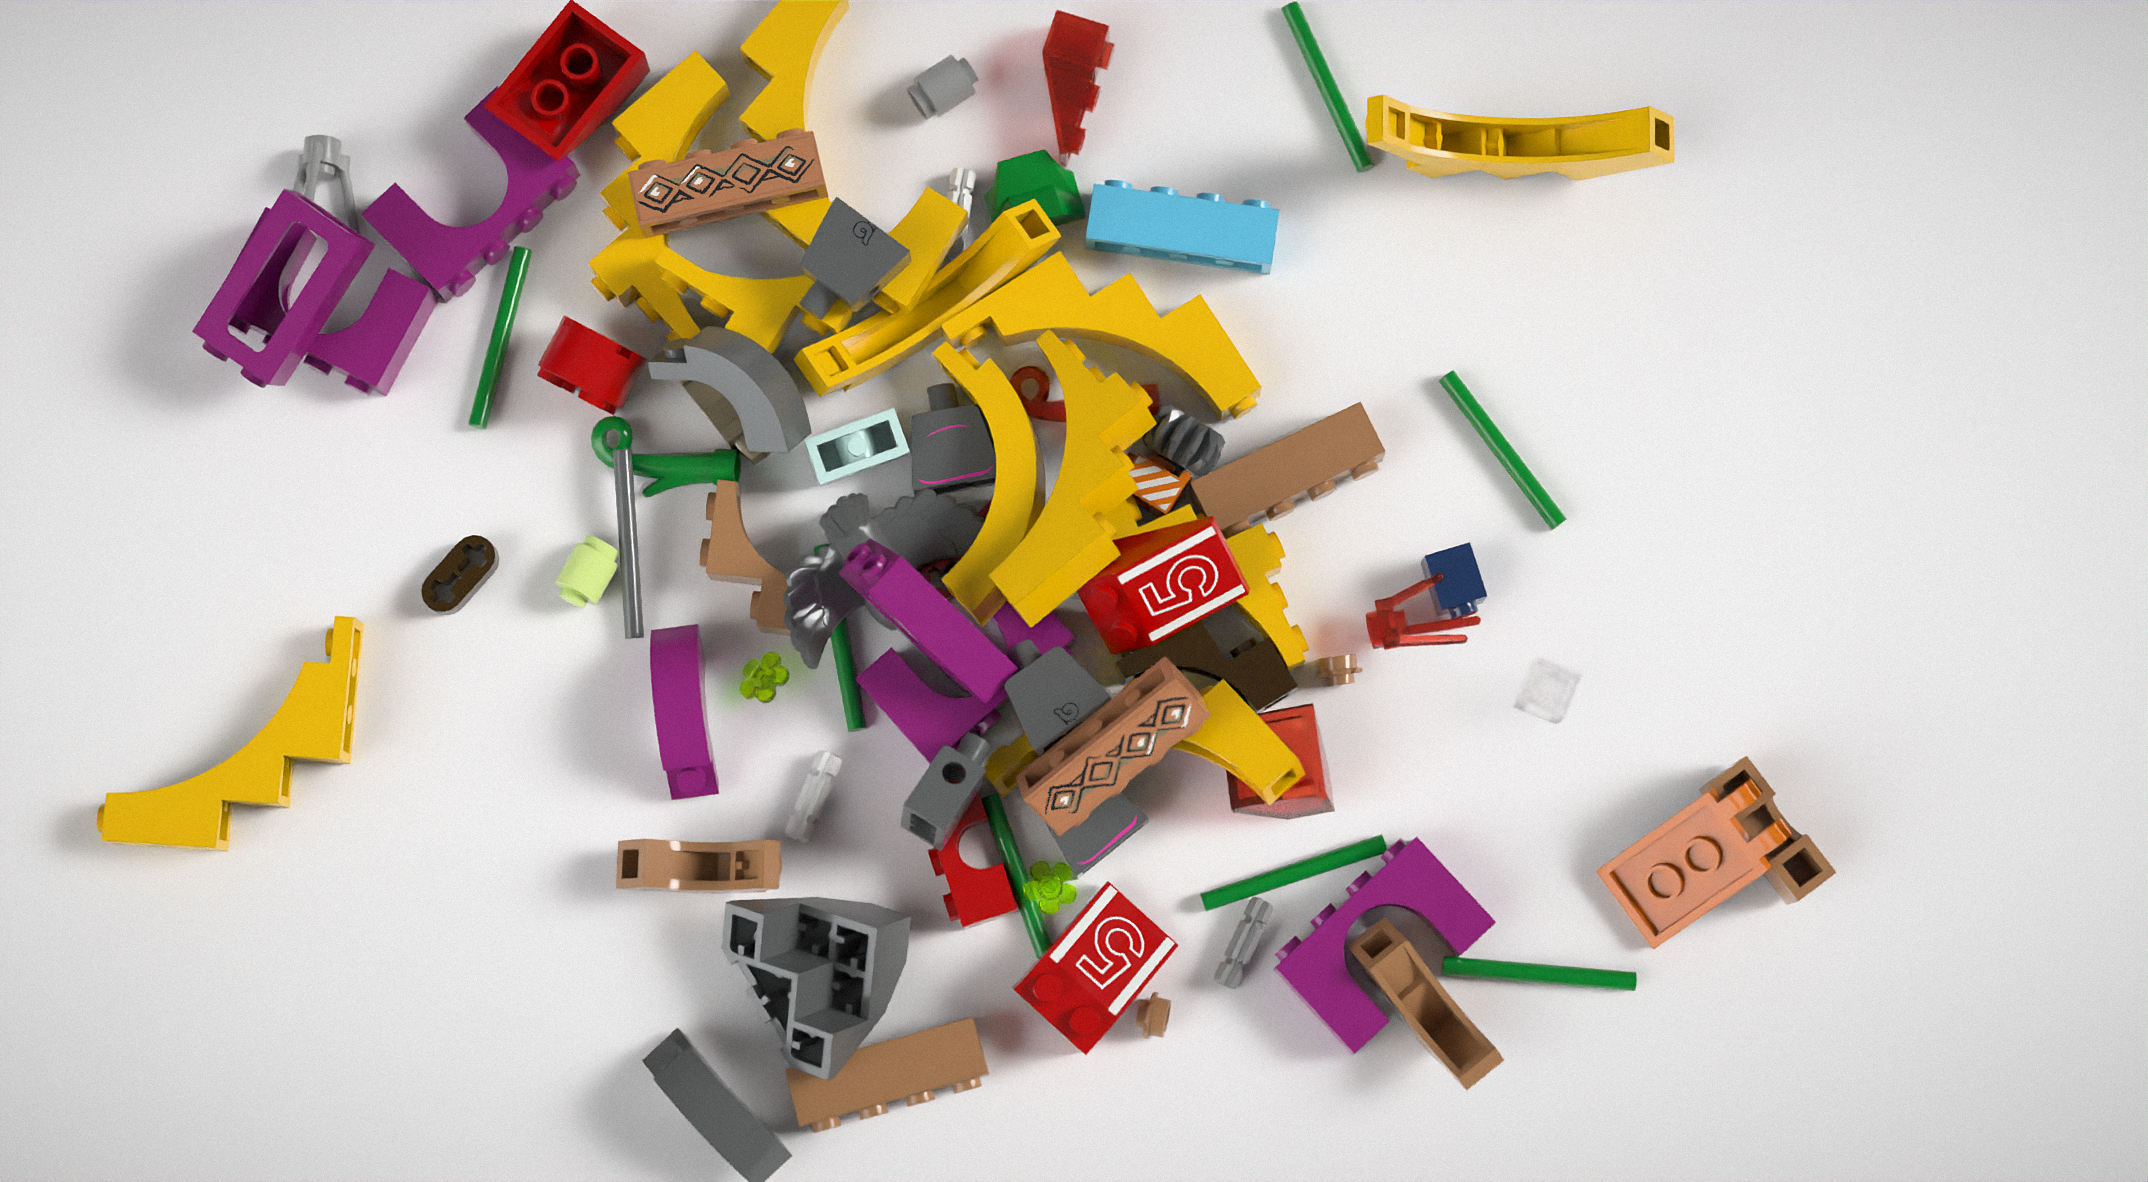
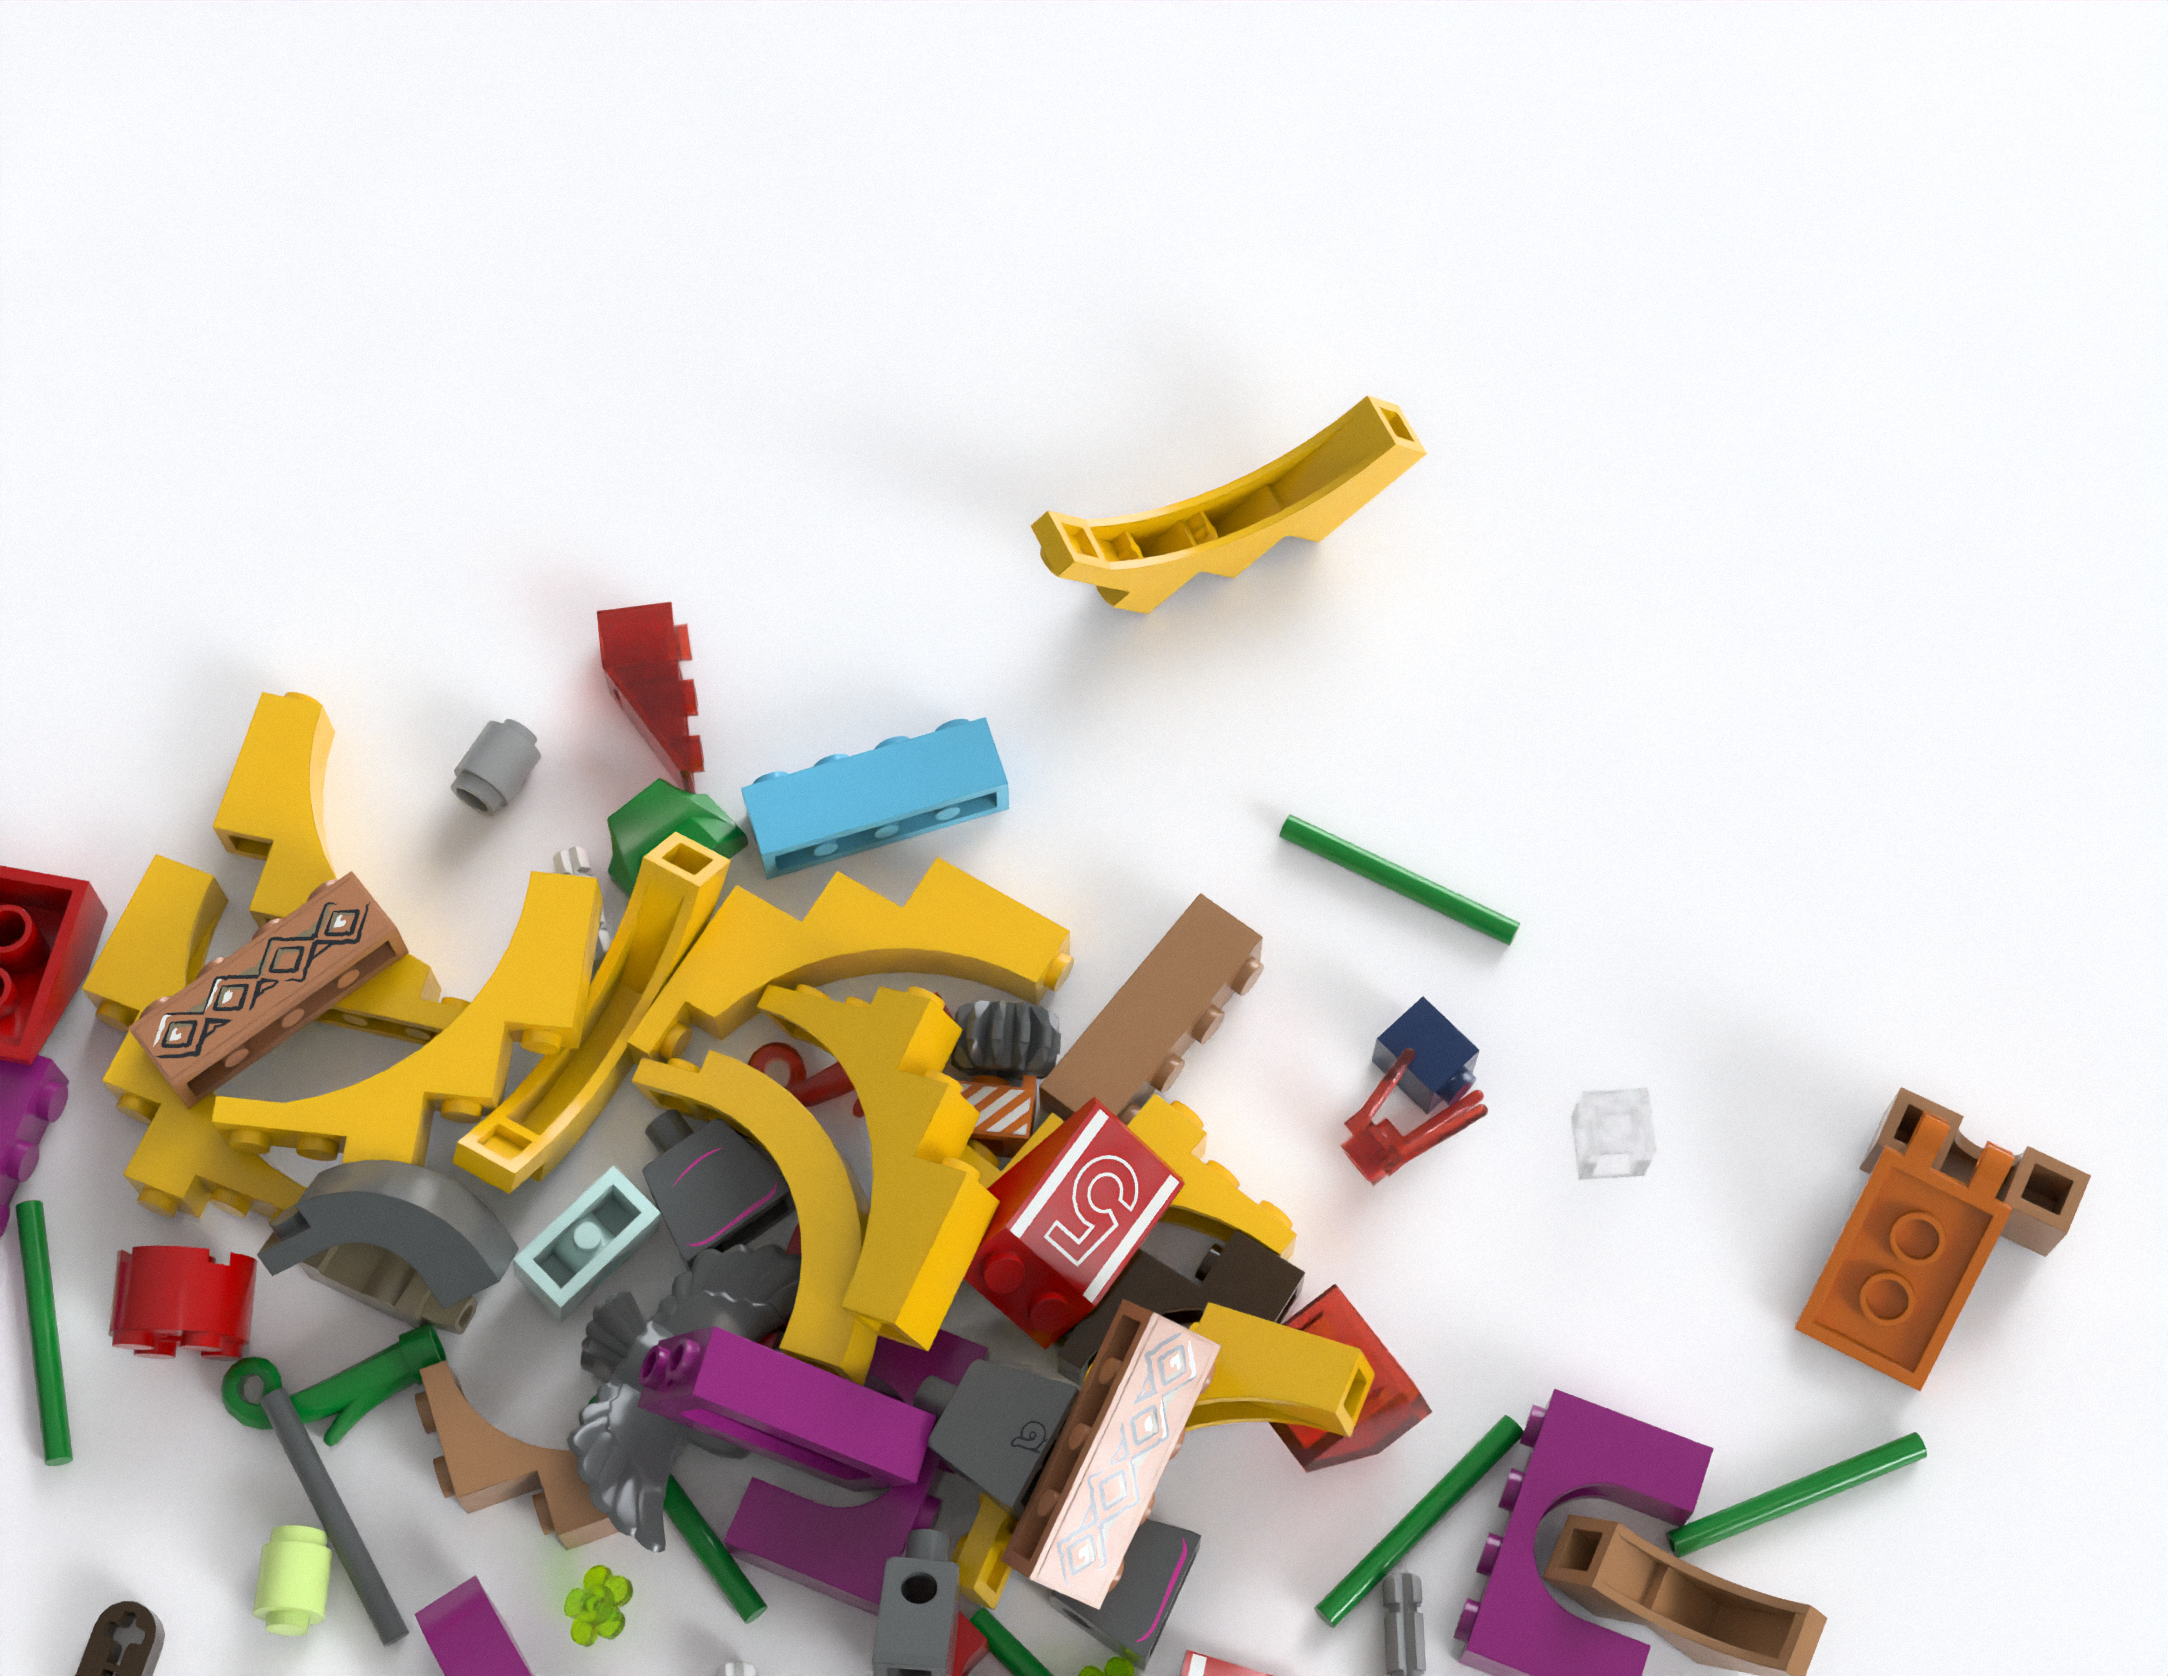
camera: 30 degrees left, 15 degrees down
(849, 261) = (472, 999): dark grey torso -> none
(1327, 87) = (970, 566): green bar -> none
(1338, 669) = (1342, 1233): medium nougat plate -> none

